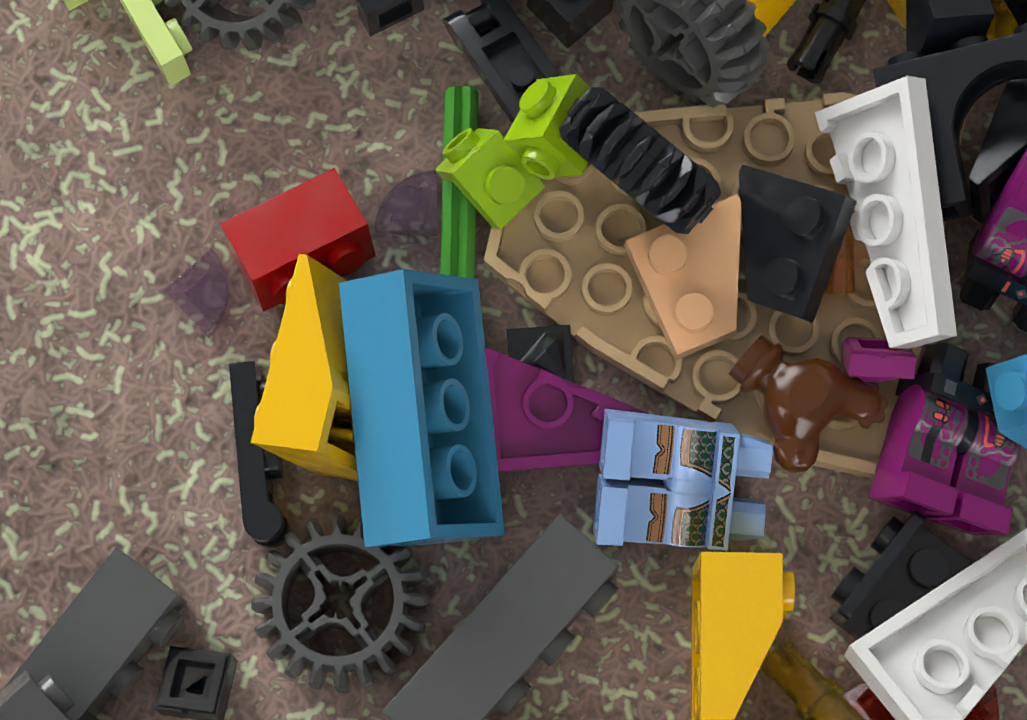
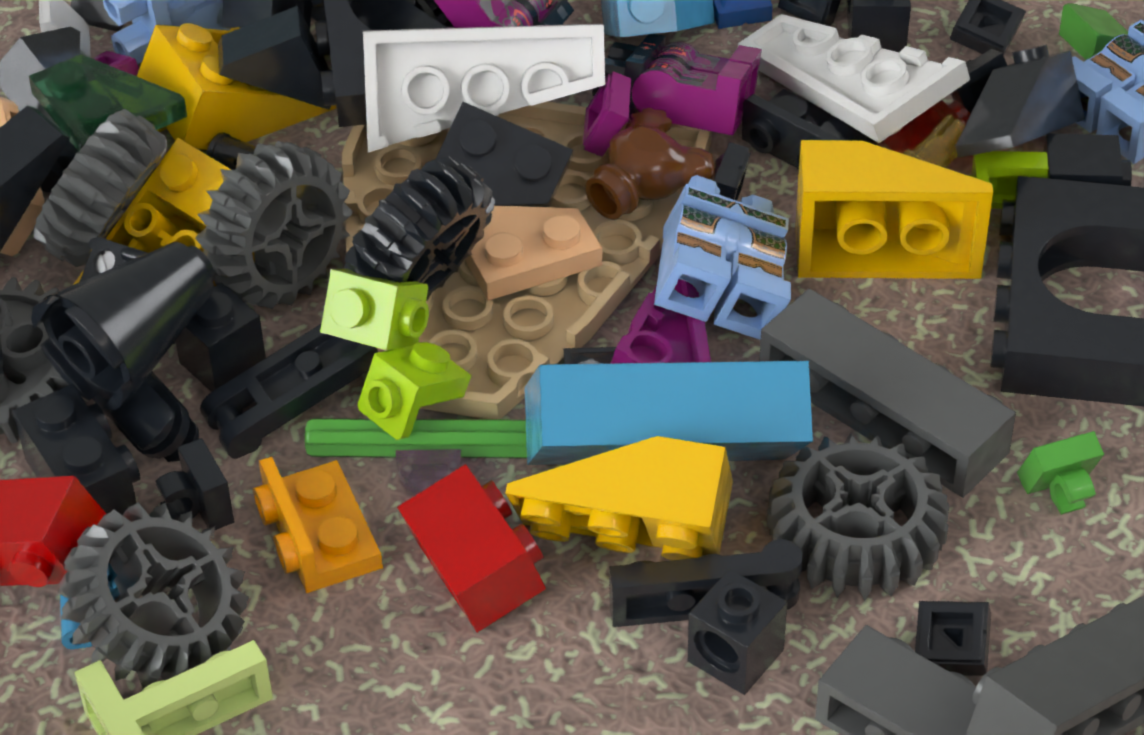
camera: 90 degrees left, 30 degrees down
(195, 479) = (736, 631): none -> black brick
(202, 293) = (521, 651): clear purple tile -> none
(352, 103) = (317, 523): none -> light orange bracket
(805, 490) = (731, 170): none -> black tile

